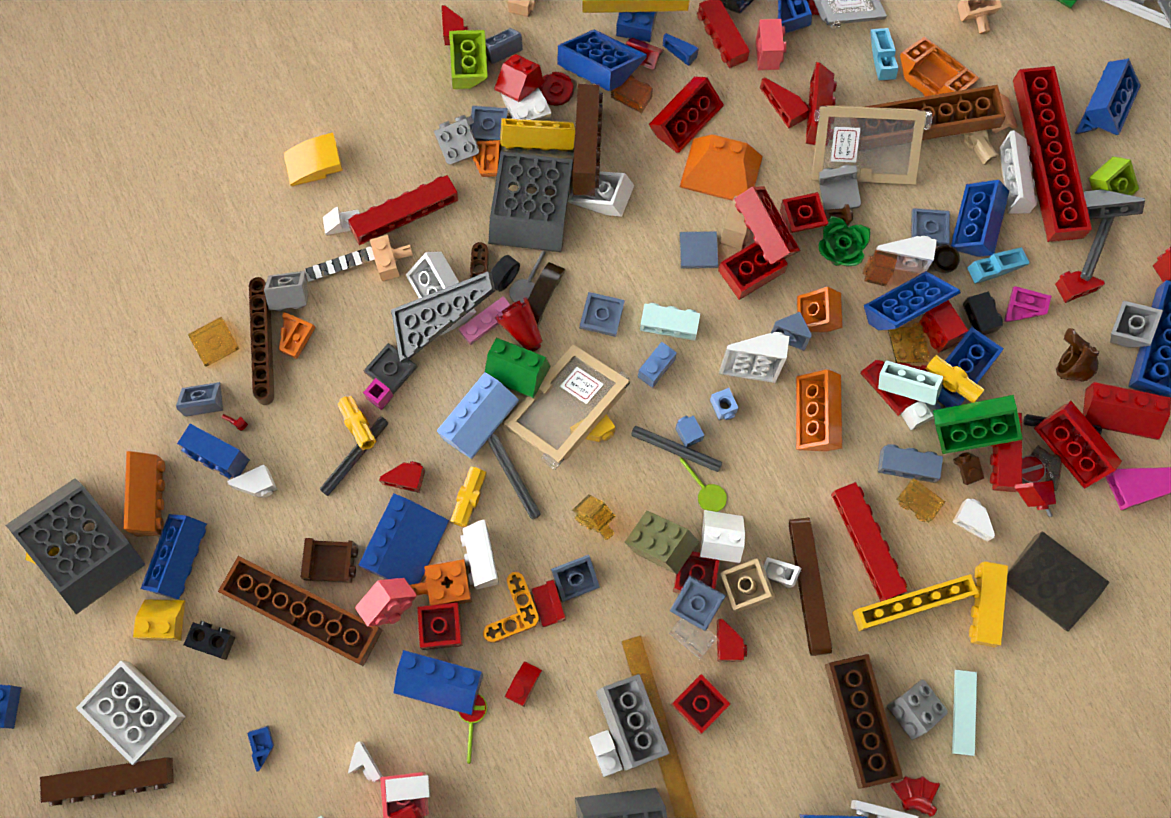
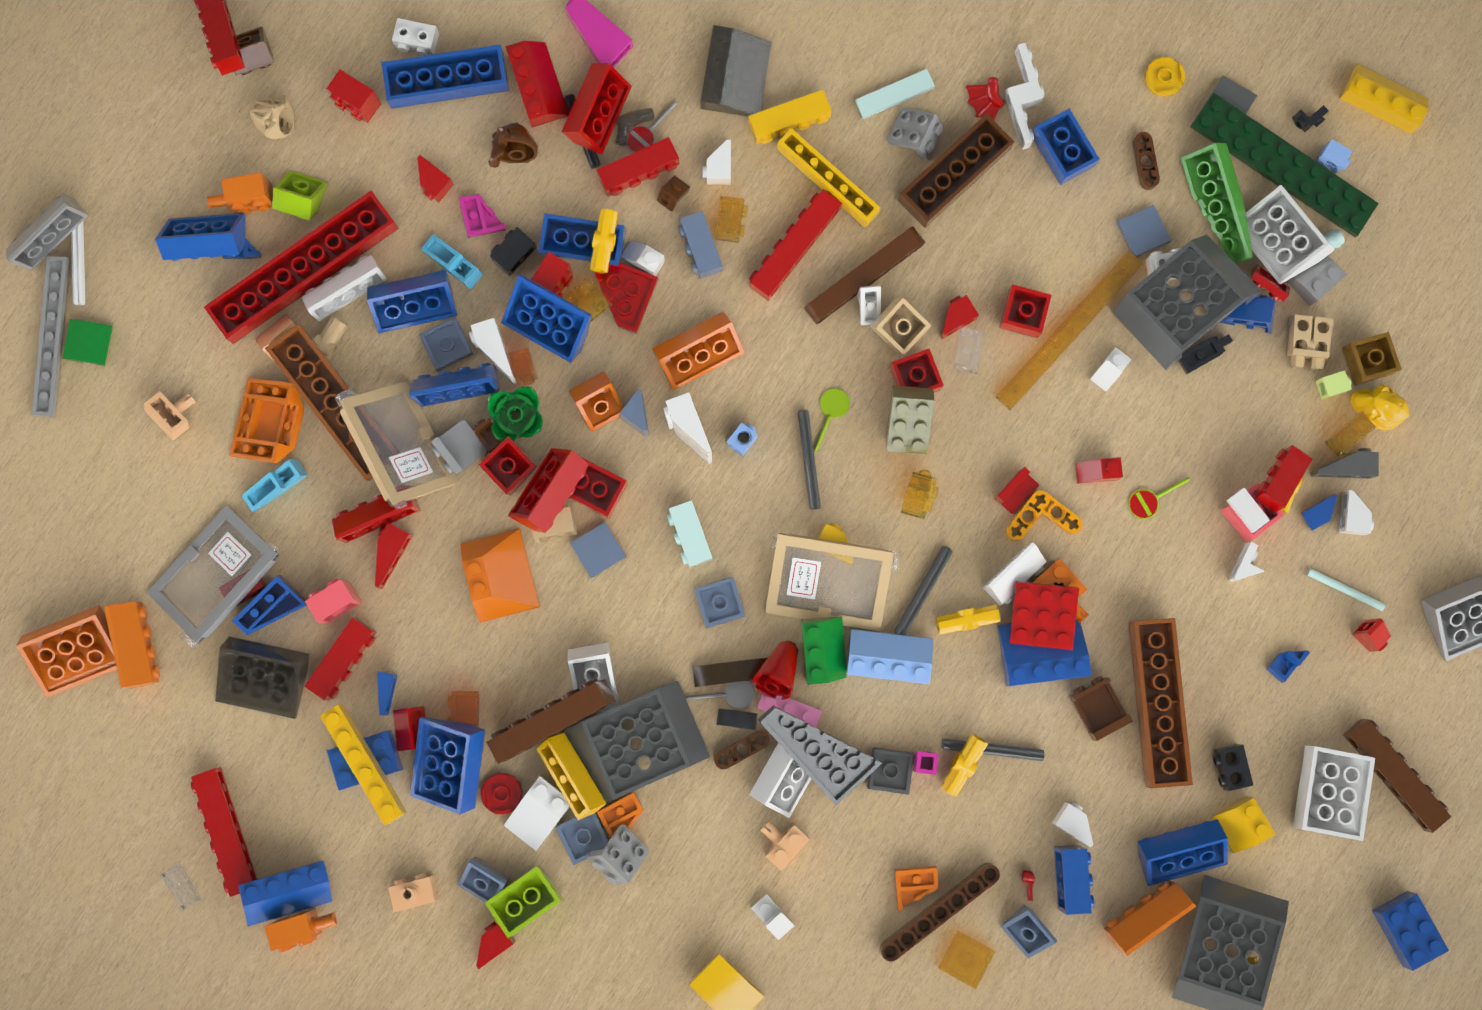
camera: 125 degrees left, 10 degrees up
(286, 291) = (875, 922): light grey slope -> none
(339, 264) = (817, 889): sticker -> none
(386, 602) = (1110, 627): coral brick -> none
(403, 209) = (727, 860): red brick -> none
(405, 476) = (985, 688): red slope -> none
(431, 554) = (1044, 615): none -> red plate
(437, 682) = (1142, 544): blue slope -> none
(439, 626) = (1098, 570): red brick -> none
(519, 77) = (518, 834): red slope -> none
(575, 578) = (981, 480): sand blue slope -> none
(632, 722) = (1075, 359): light grey slope -> none
(657, 364) = (741, 521): medium blue brick -> none
(686, 113) = (457, 643): red slope -> none
(689, 431) = (787, 456): medium blue brick -> none
(697, 603) = (944, 358): sand blue tile -> none
(722, 536) = (869, 371): white slope -> none
(894, 207) = (455, 386): none -> blue slope
(910, 382) = (629, 279): light aqua brick -> none
(946, 259) = (475, 311): dark brown hair -> none
(978, 424) = (636, 200): green brick -> none
(1037, 494) = (665, 121): red slope -> none
(1096, 248) = (380, 179): dark grey axle -> none
(1112, 204) = (331, 190): dark grey slope -> none
(1135, 325) = (448, 107): light grey slope -> none
(1136, 139) = (244, 194): none -> orange brick

